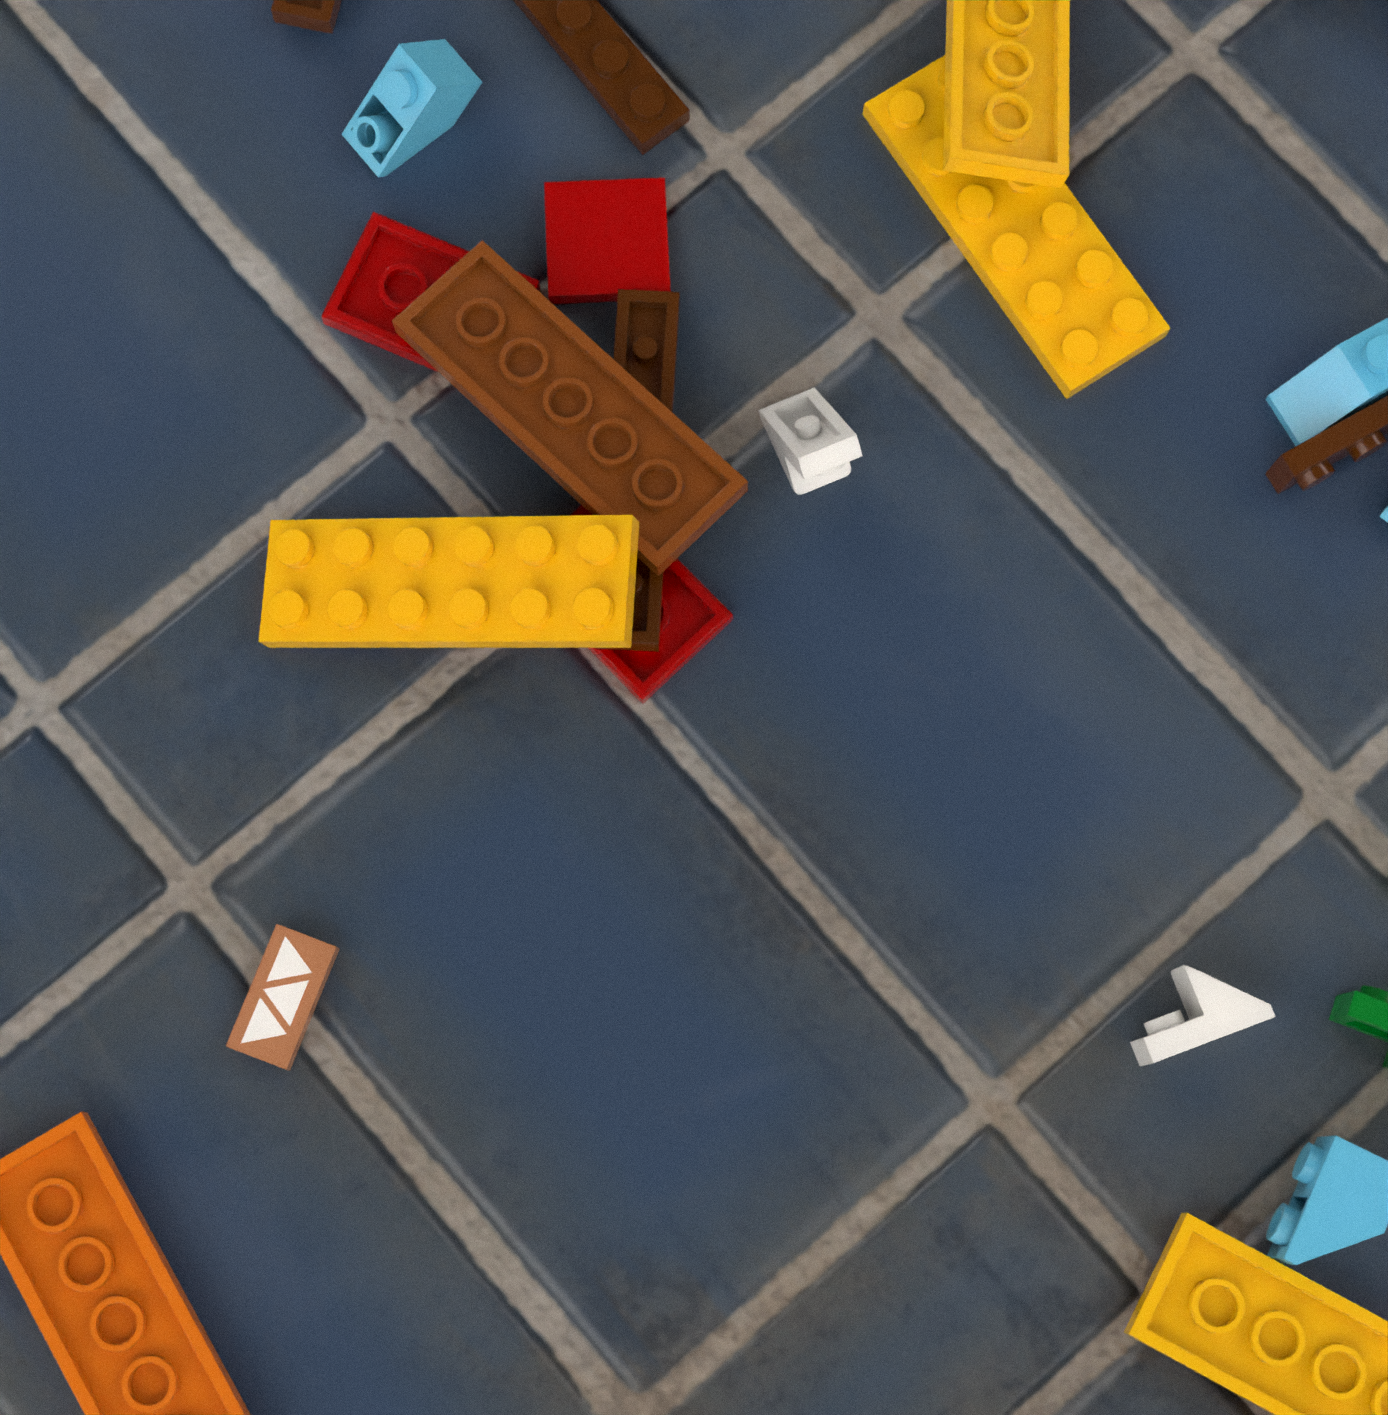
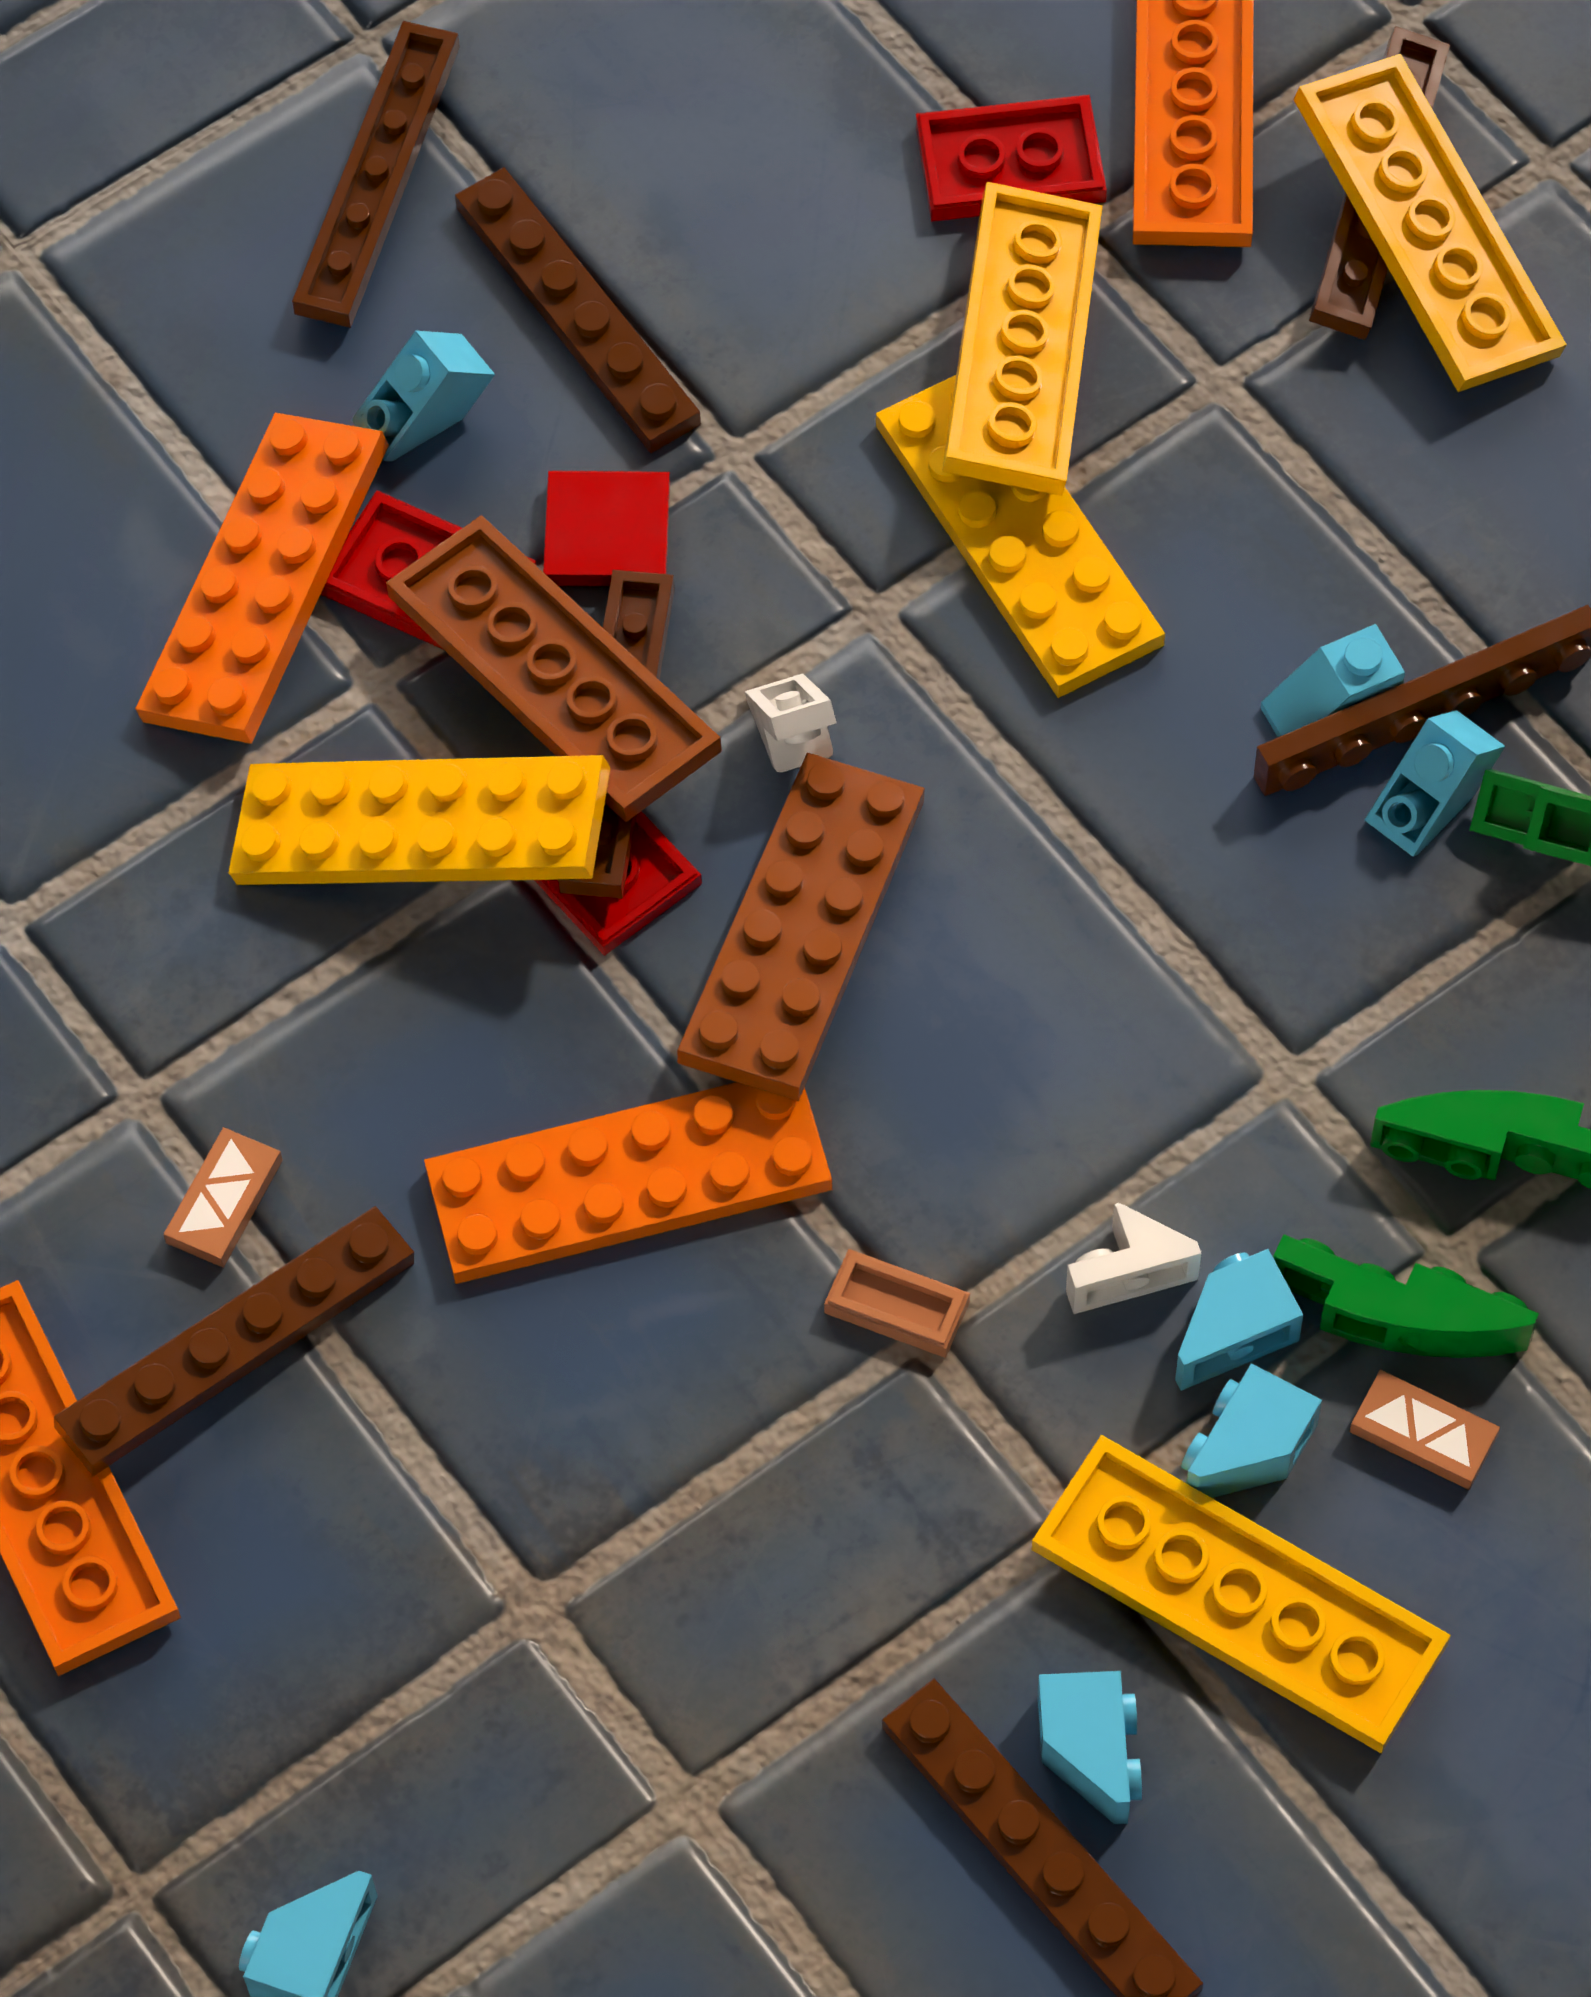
camera: 10 degrees right, 15 degrees down
(266, 314) = (262, 578): none -> orange plate
(304, 1166) = (233, 1340): none -> reddish brown plate
(686, 947) = (624, 1177): none -> orange plate
(839, 672) = (801, 927): none -> dark orange plate
(967, 1070) = (897, 1303): none -> nougat tile
(1308, 1072) = (1238, 1318): none -> medium azure slope

